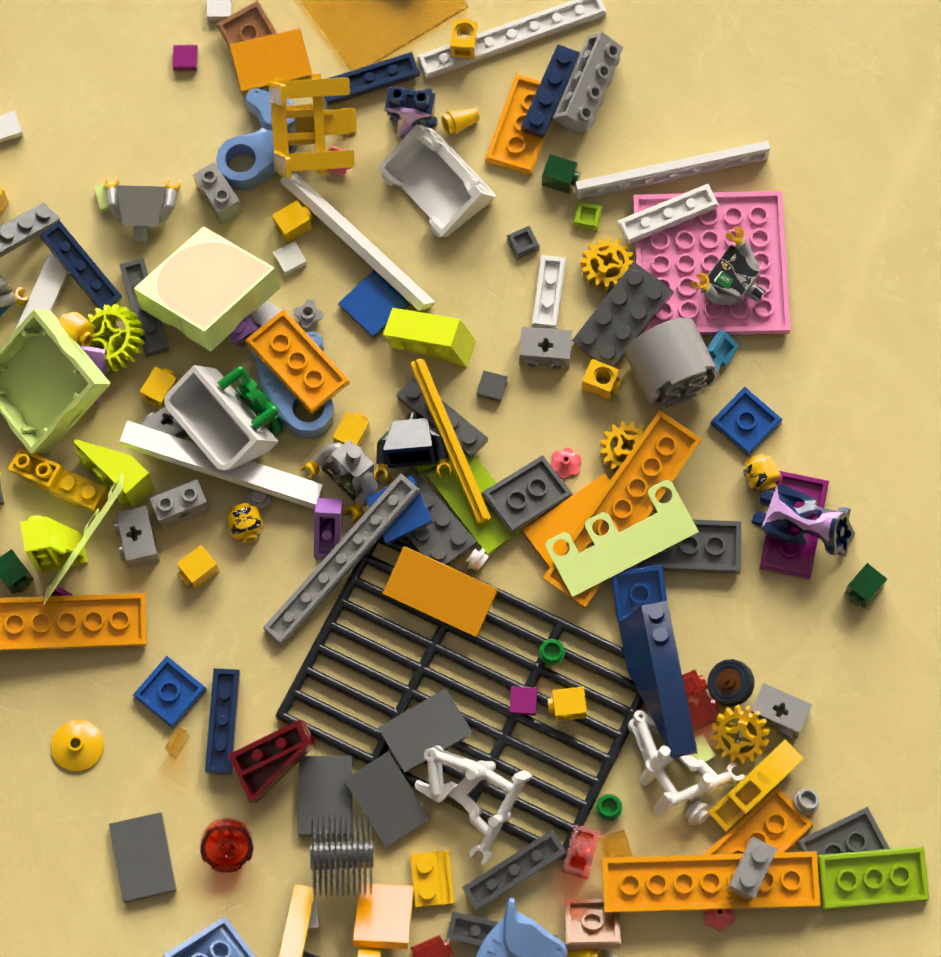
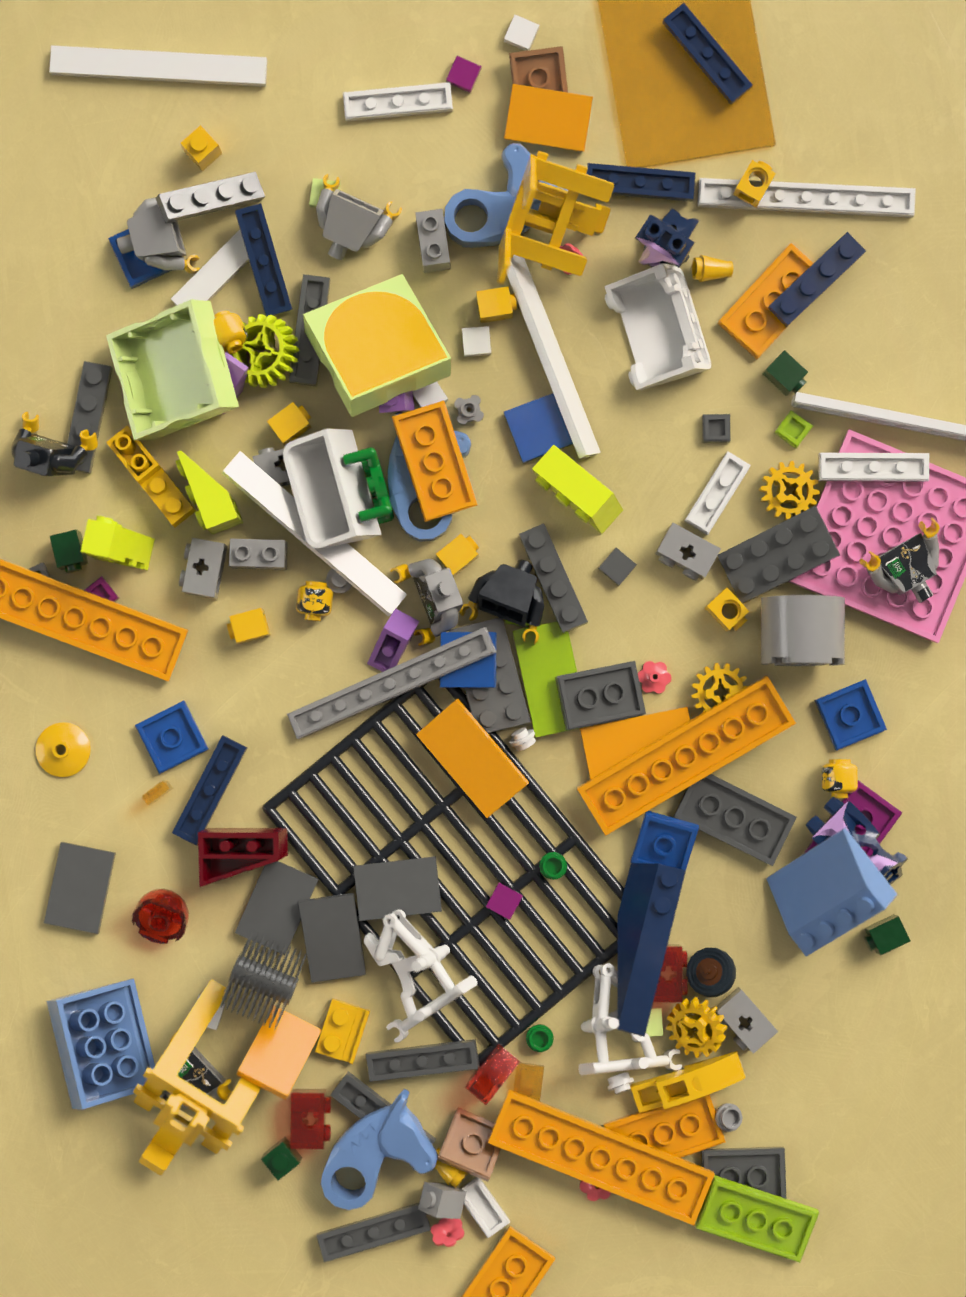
camera: 20 degrees right, 15 degrees up
(87, 534) = (154, 555): yellowish green piece -> none
(139, 101) = (397, 101): none -> white tile
(450, 440) = (549, 596): yellow axle -> none
(568, 704) = (544, 925): yellow brick -> none
(588, 83) = (859, 288): light grey brick -> none
(623, 549) = (670, 798): yellowish green piece -> none
(722, 349) = (860, 632): dark azure plate -> none
(751, 869) = (643, 1168): light grey brick -> none
(796, 563) = (829, 892): none -> medium blue slope

